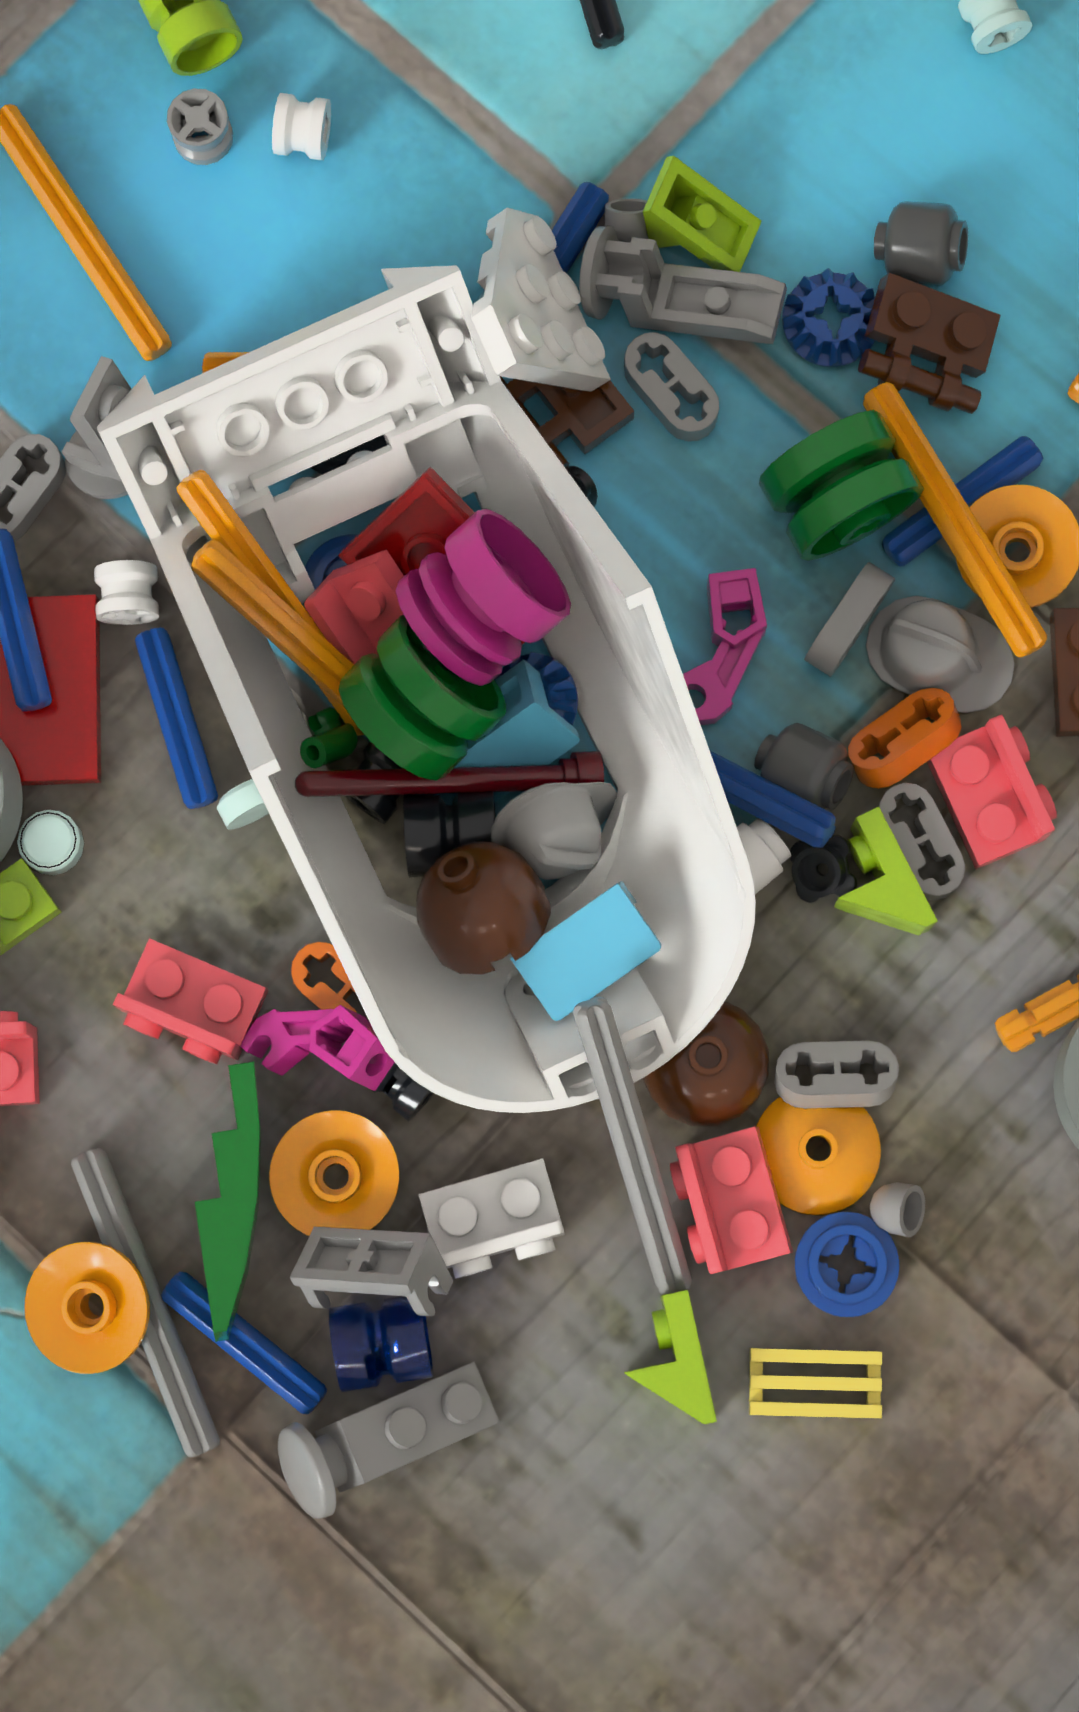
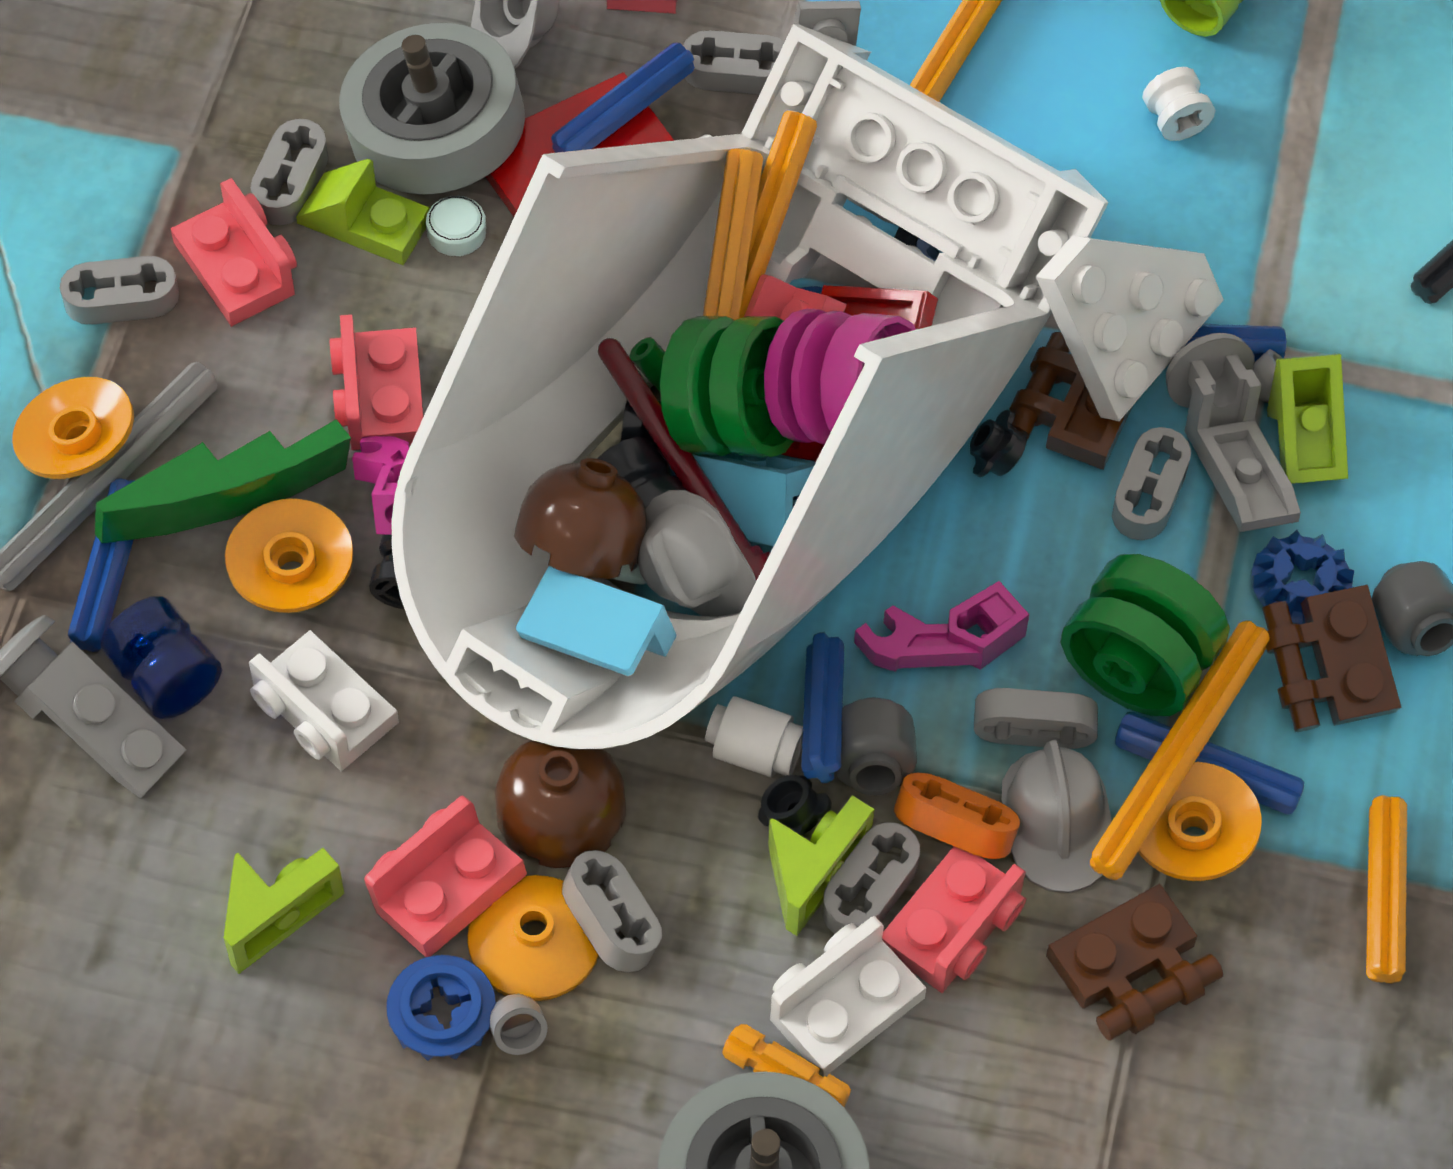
camera: 55 degrees right, 20 degrees down
(198, 112) = (1138, 29): light grey wheel -> none
(371, 1264) = (223, 603): light grey hinge -> none
(632, 1145) = (441, 746): light grey axle -> none
(871, 1384) = (294, 989): light yellow tile -> none
(1017, 923) = (844, 996): none -> white bracket

